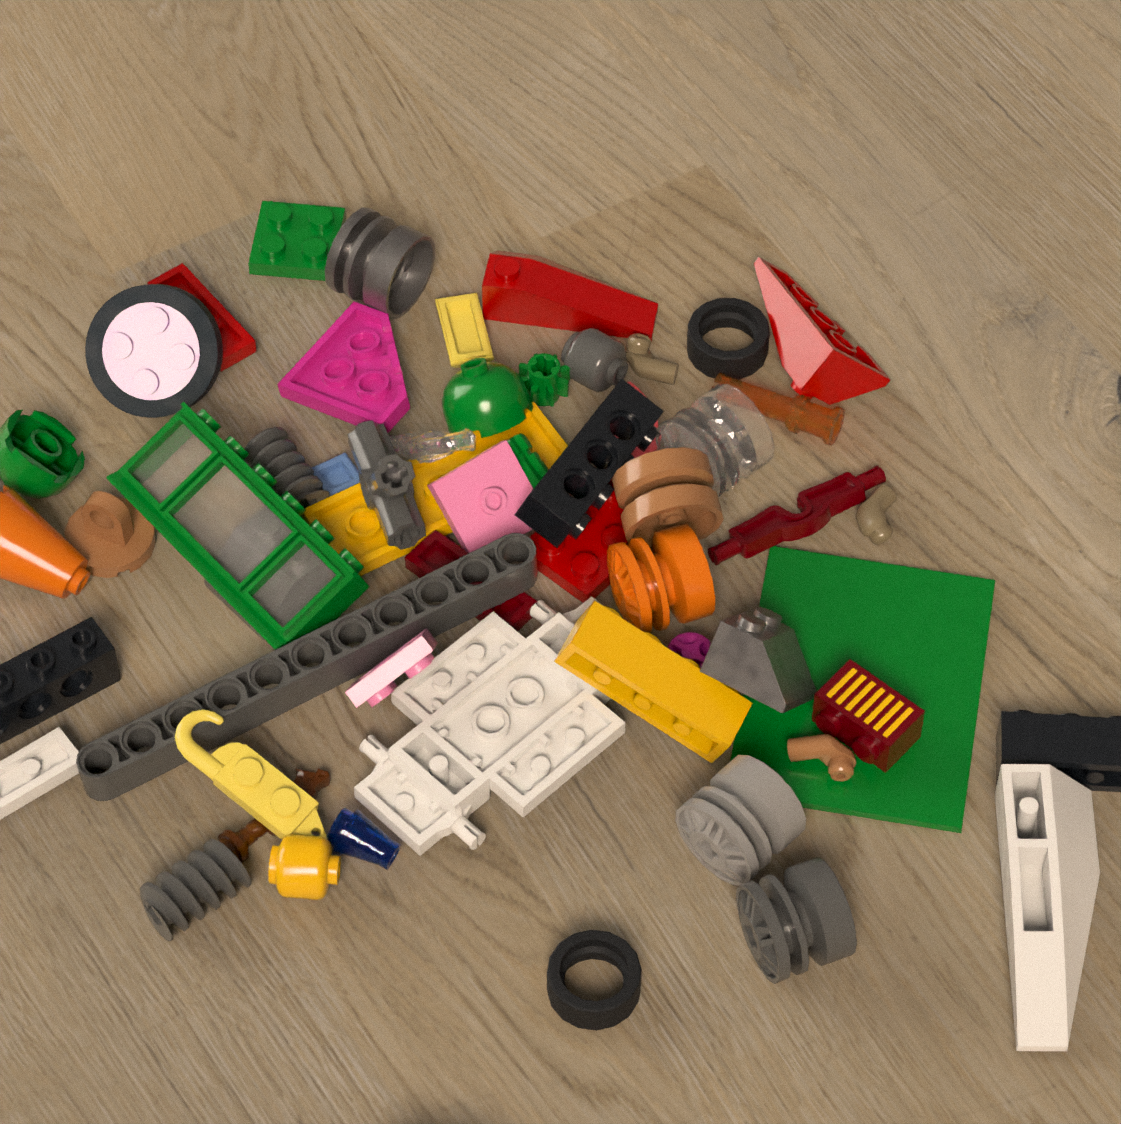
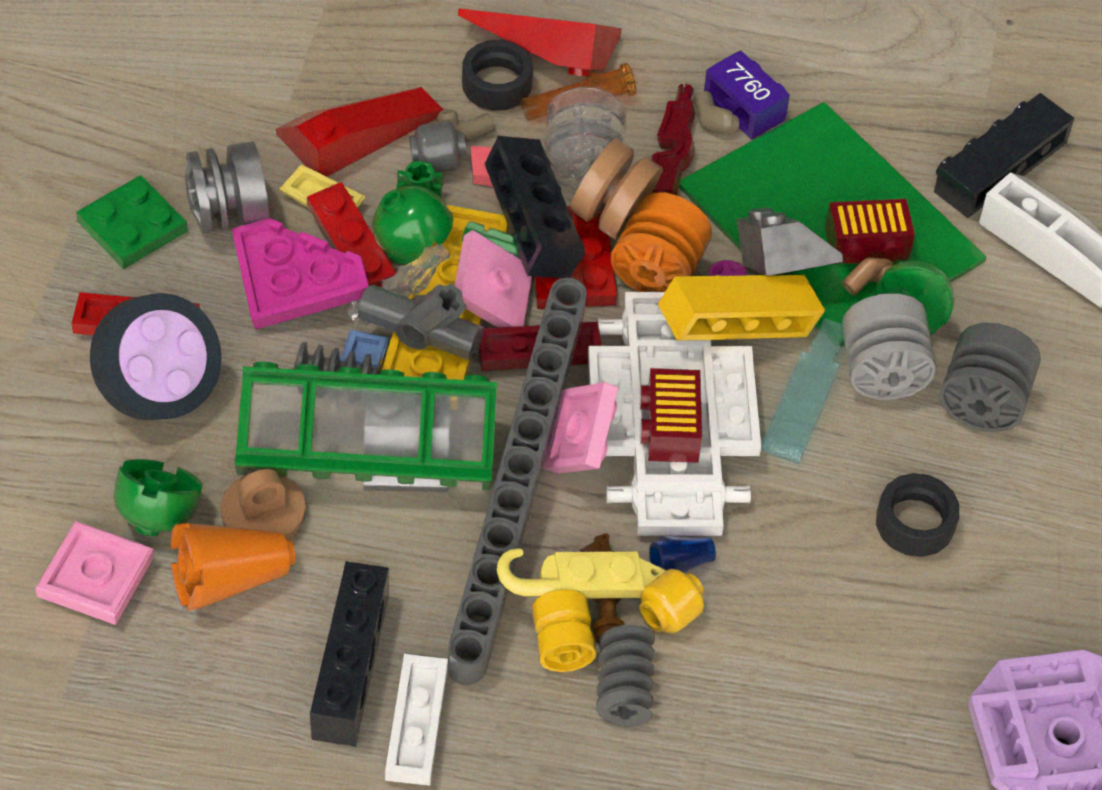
camera: 50 degrees left, 0 degrees up
(198, 808) = (563, 630): none -> yellow wheel
(442, 355) = (348, 230): none -> red plate
(471, 717) = (673, 415): none -> dark red brick
(626, 809) = (804, 396): none -> clear light blue piece
(829, 799) = (925, 285): none -> green tile
(923, 518) = (748, 93): none -> dark purple brick

